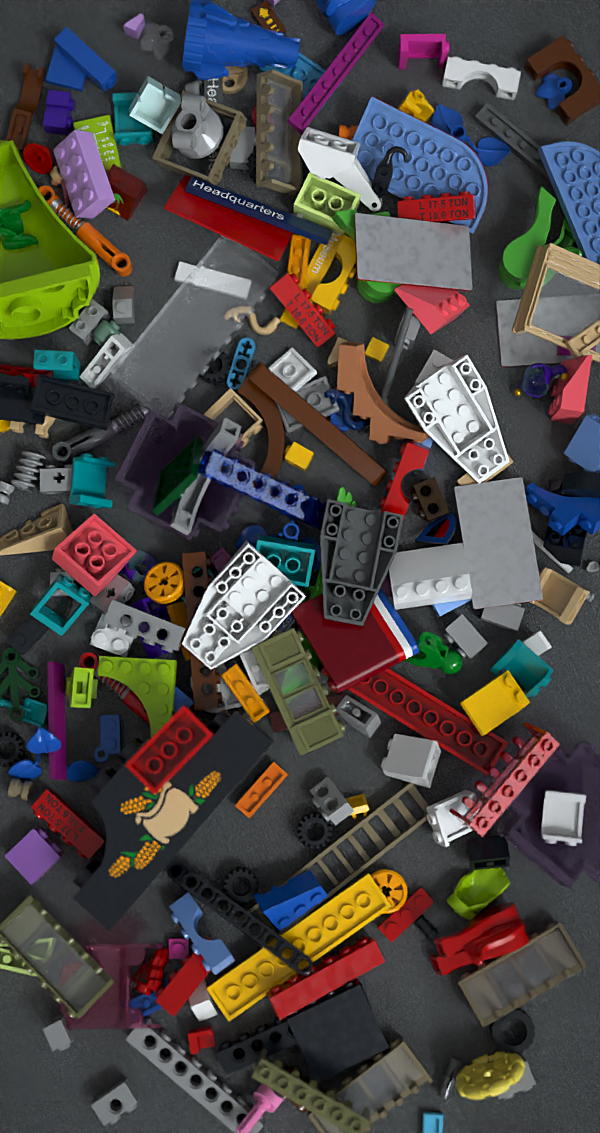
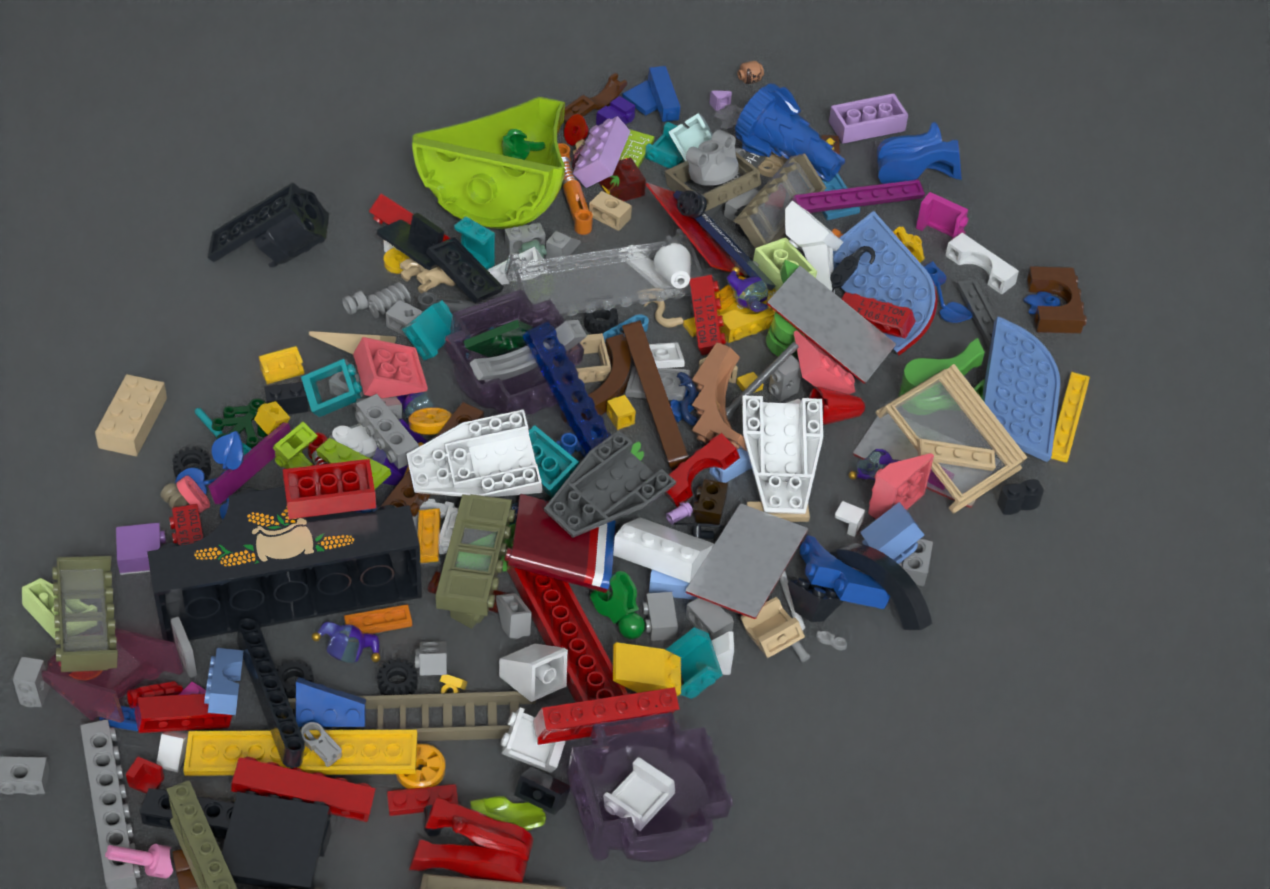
camera: 30 degrees right, 35 degrees down
(34, 779) = (193, 493): none -> coral beam
(37, 669) = (271, 416): none -> yellow brick
(144, 240) = (610, 210): none -> tan brick
(144, 922) = (183, 647): none -> light grey tile
(214, 196) = (693, 204): none -> black wheel
(246, 279) = (674, 264): none -> white cone
(256, 826) = (348, 642): none -> clear light blue piece
(316, 937) = (323, 746): none -> light grey piece
(320, 257) = (749, 292): none -> piece
(412, 525) = (679, 513): none -> lavender pin
(462, 334) = (838, 405): none -> red cone
(544, 440) = (851, 515): none -> white panel

